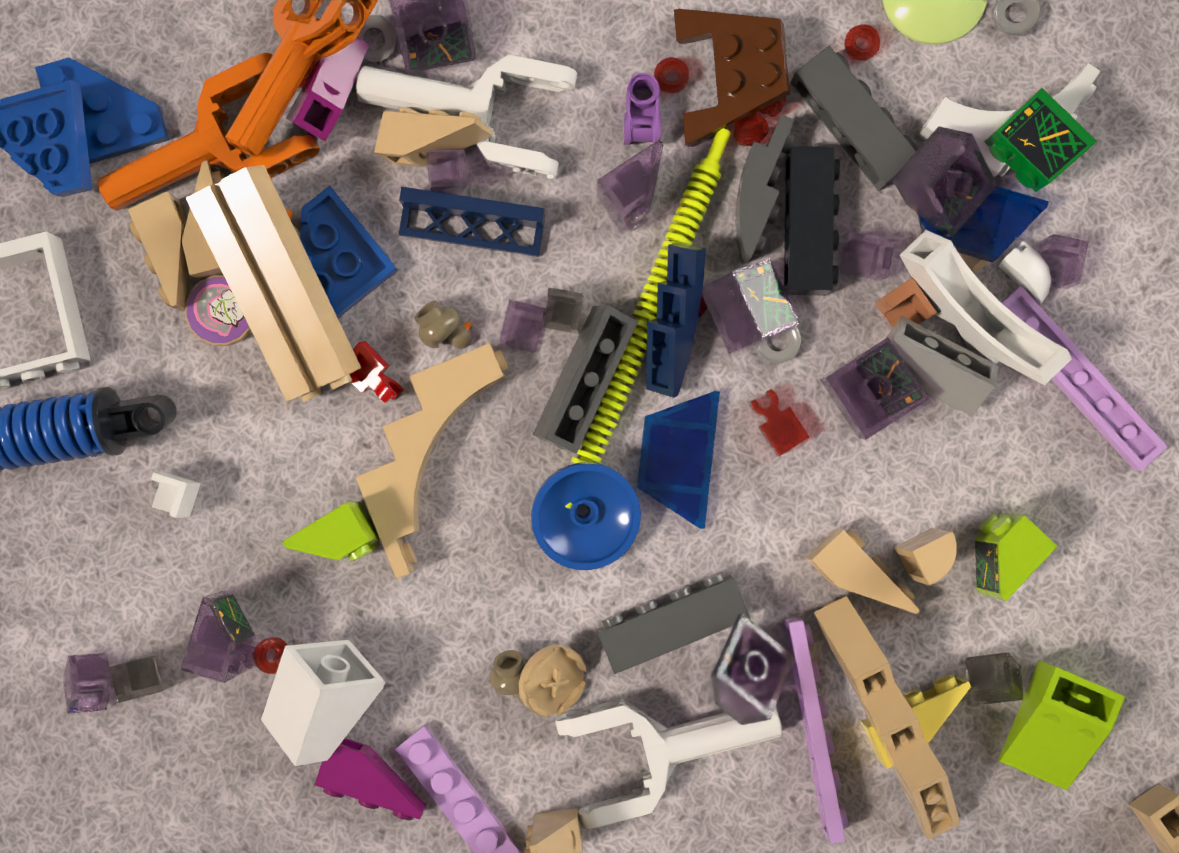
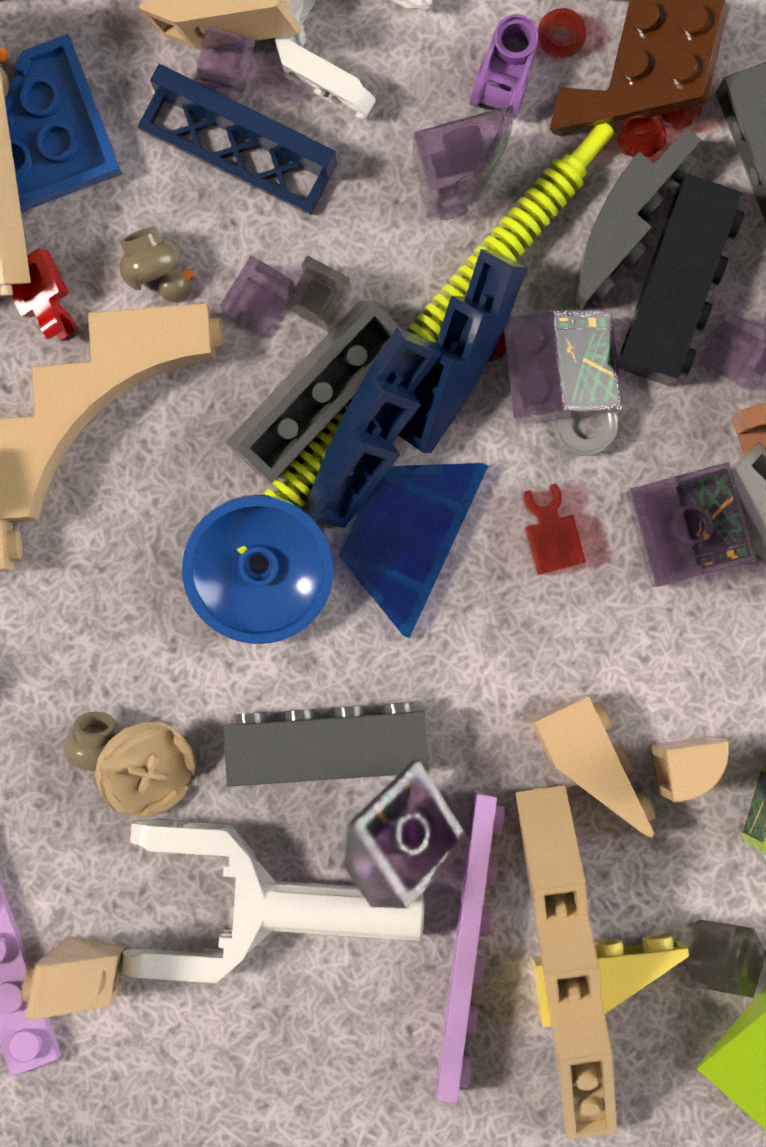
camera: 25 degrees right, 0 degrees up
(630, 403) = (364, 439): none -> dark blue slope

